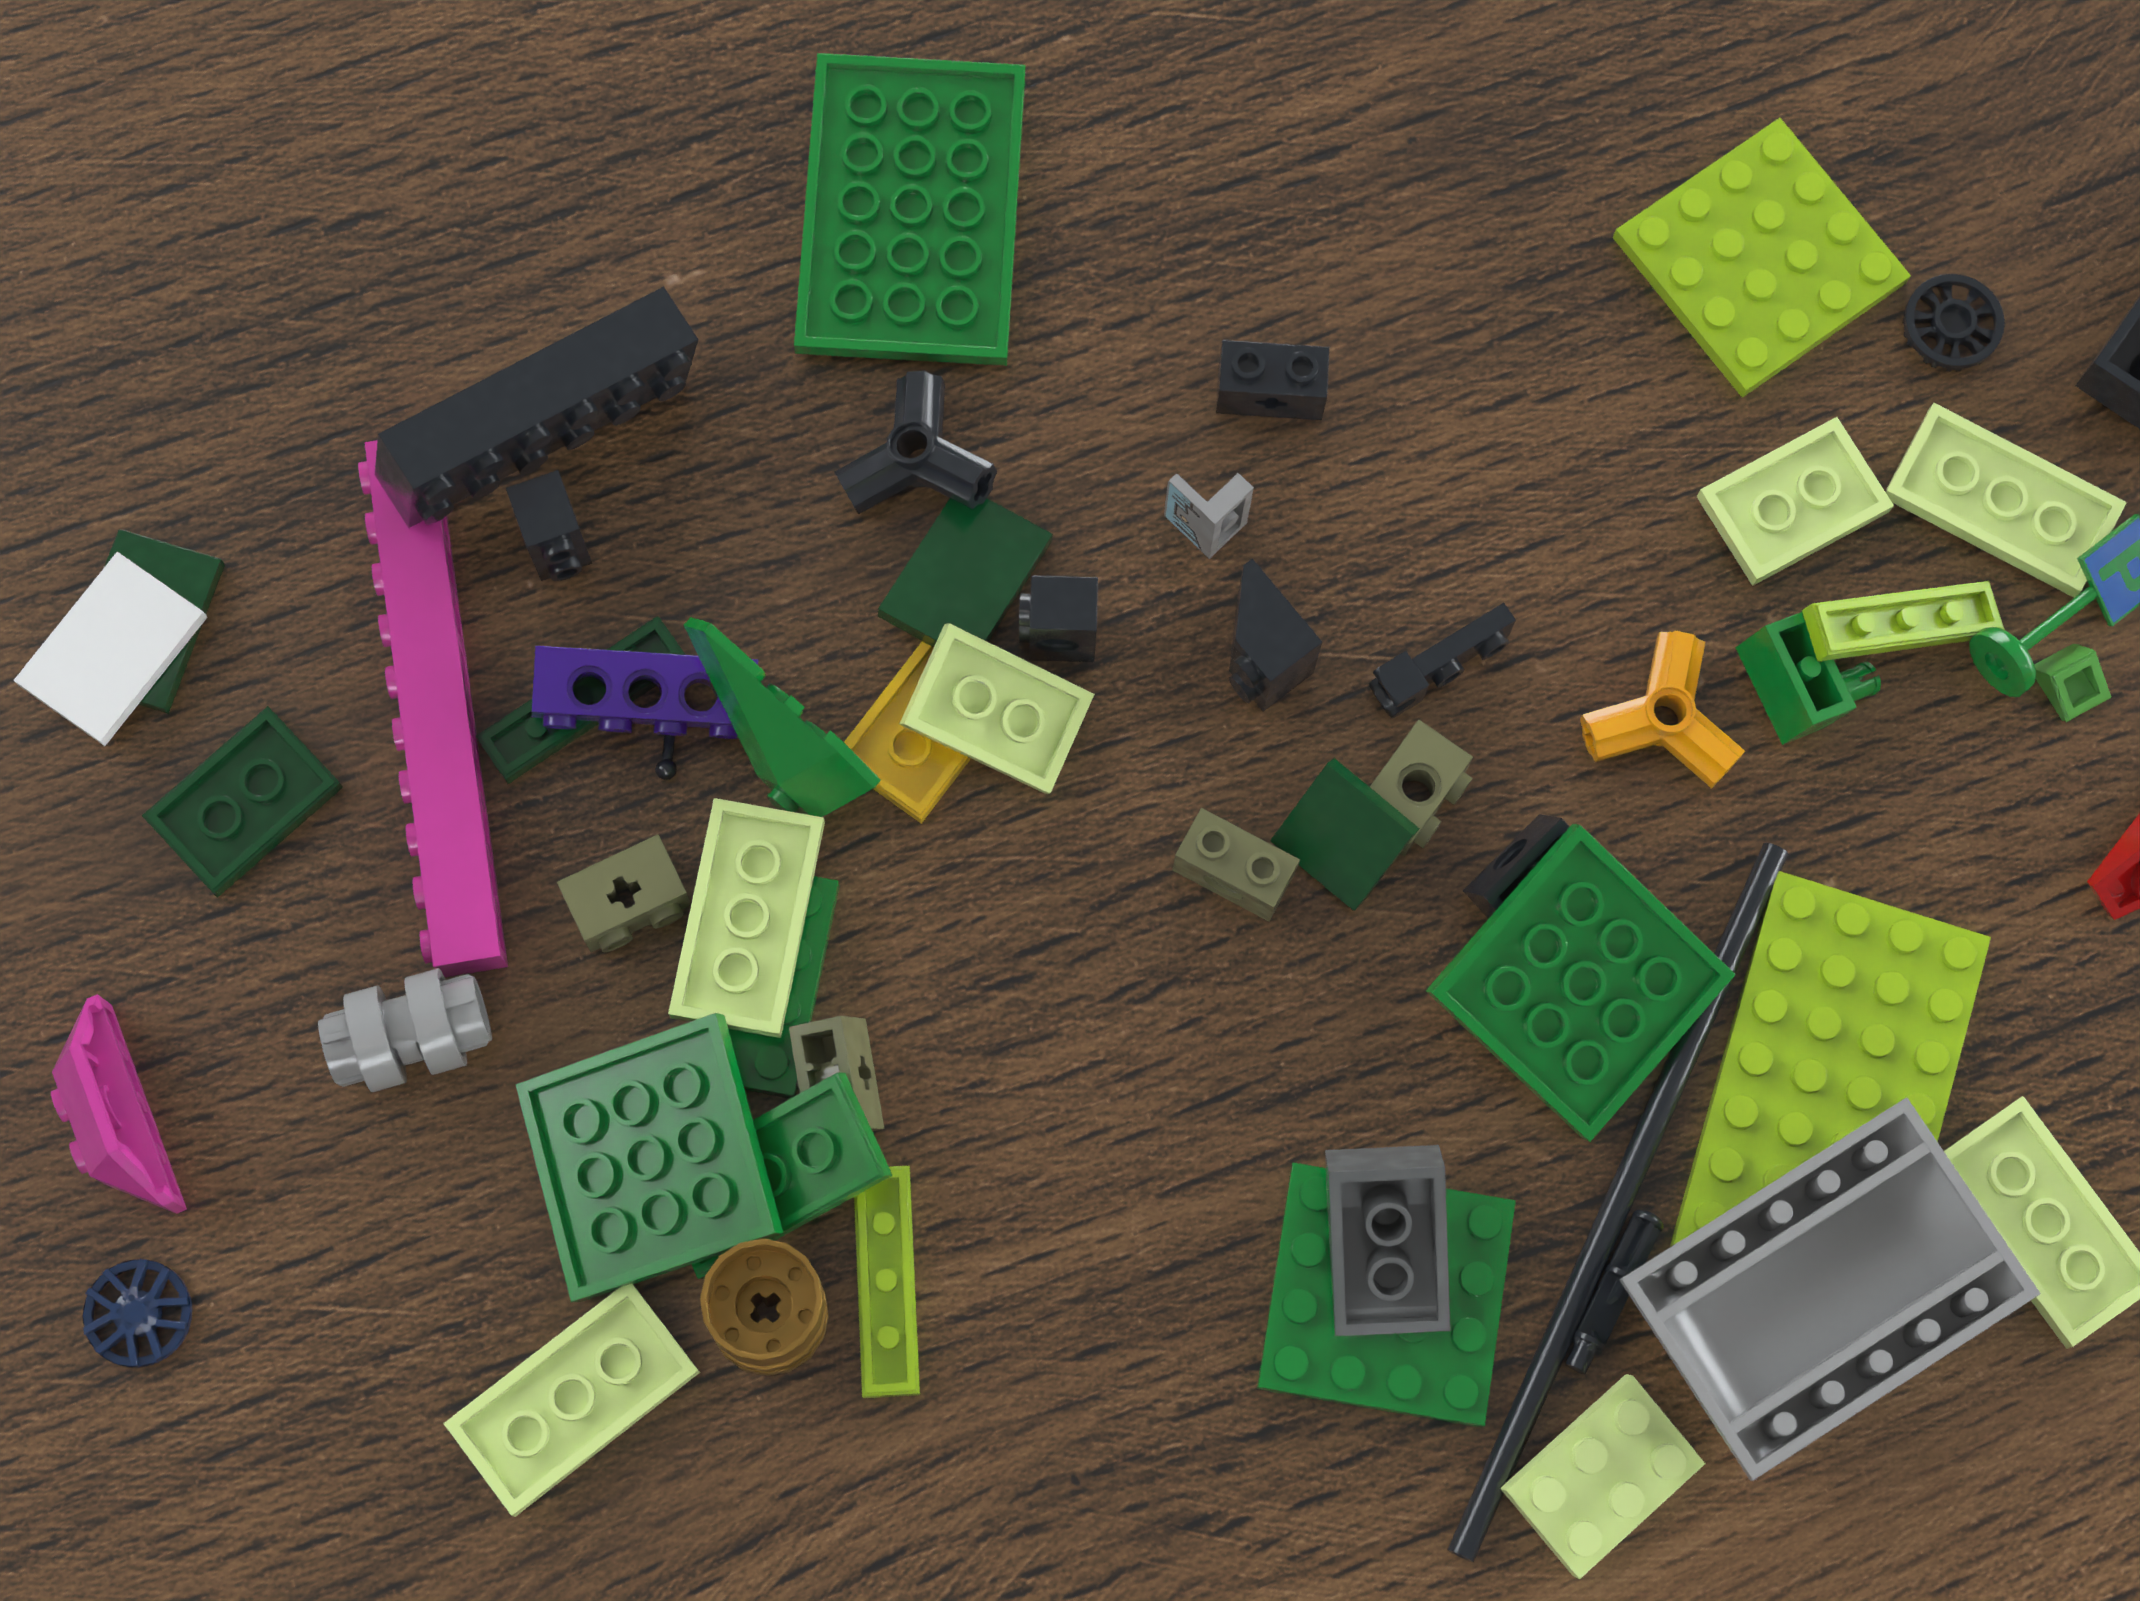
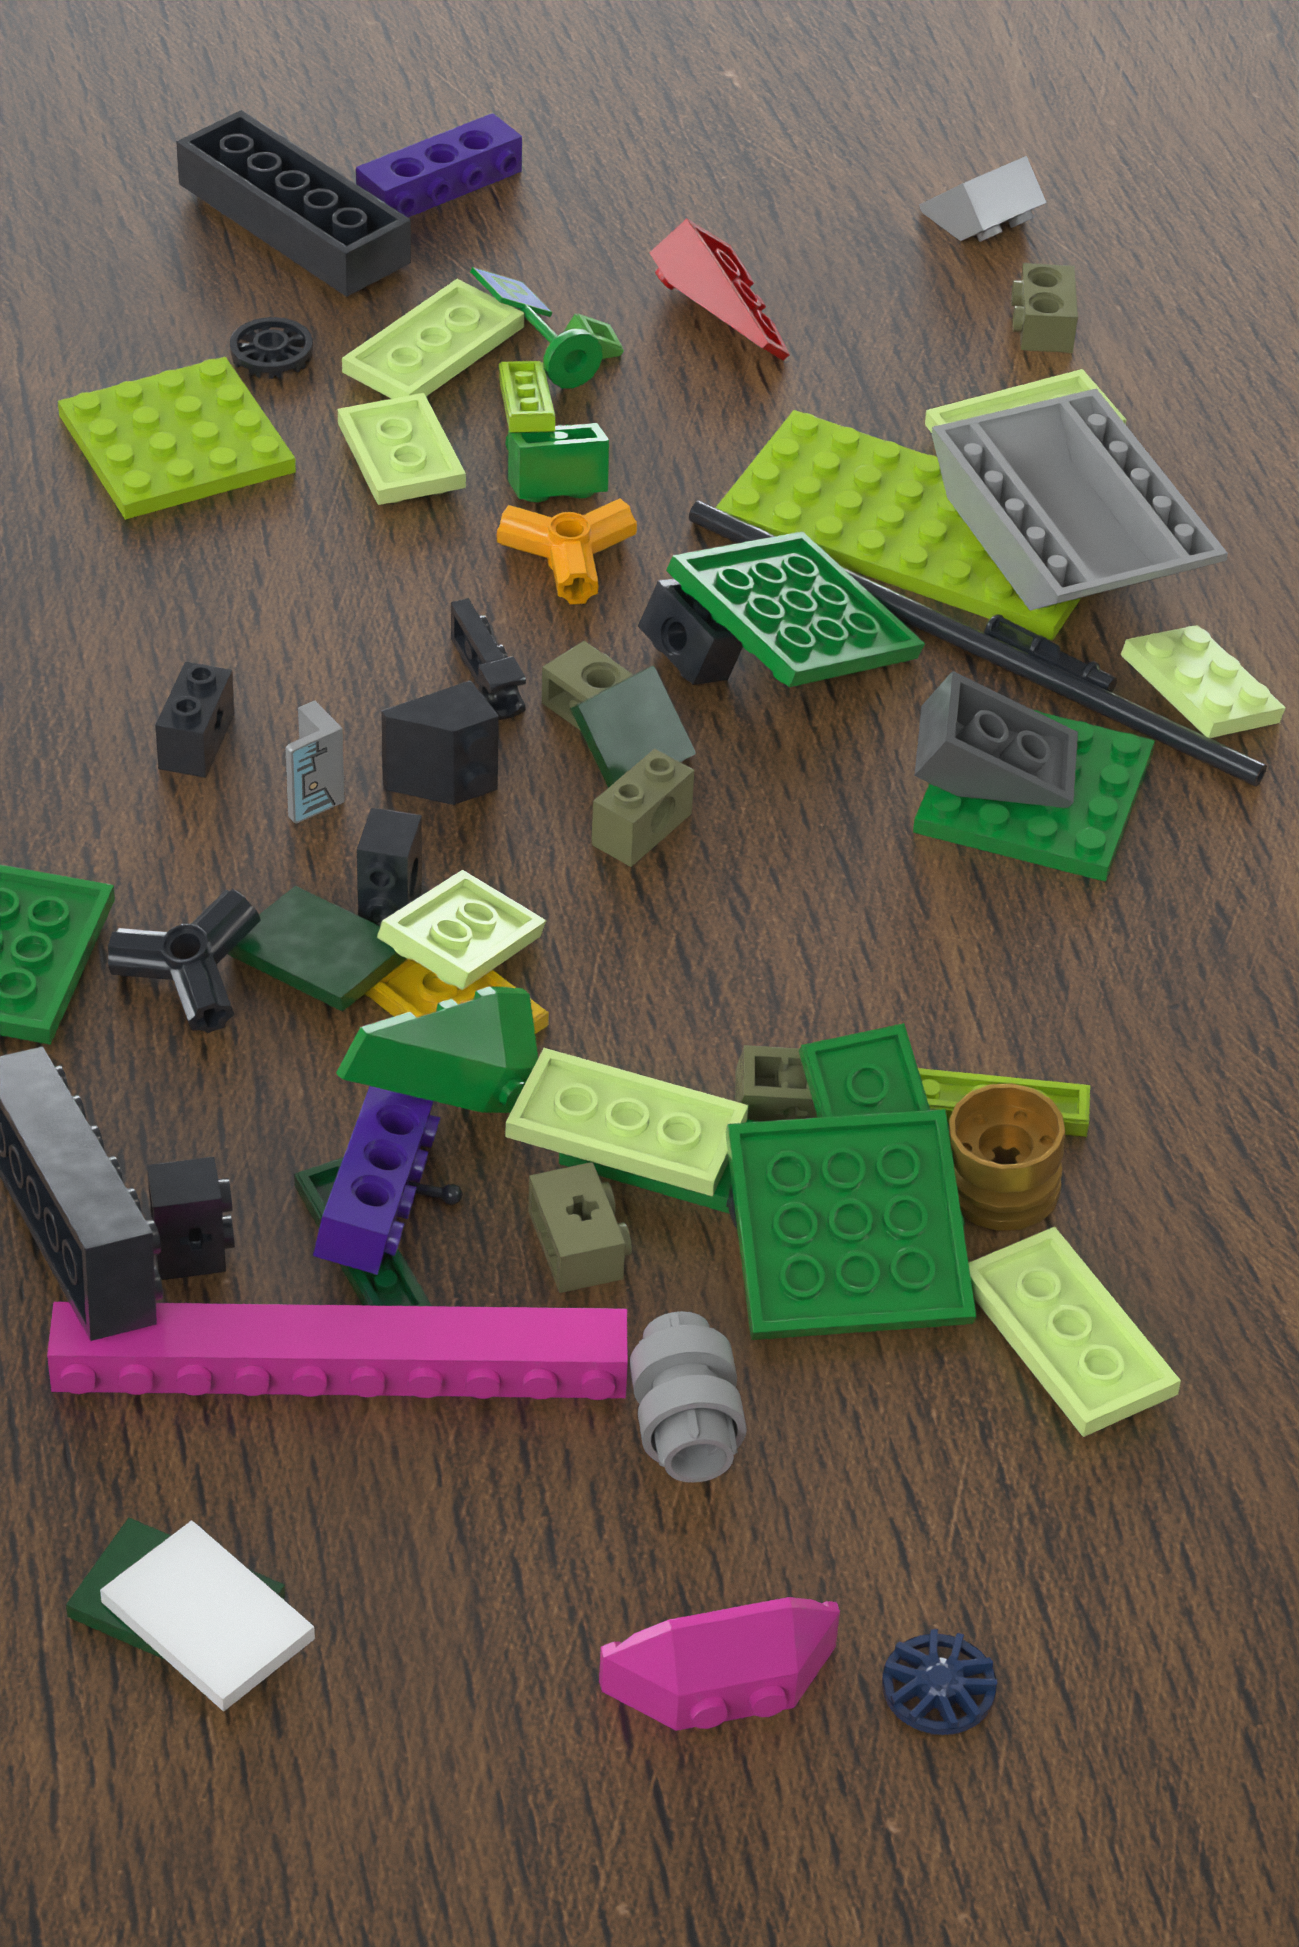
camera: 80 degrees left, 30 degrees down
(242, 801) = (402, 1536): dark green tile -> none

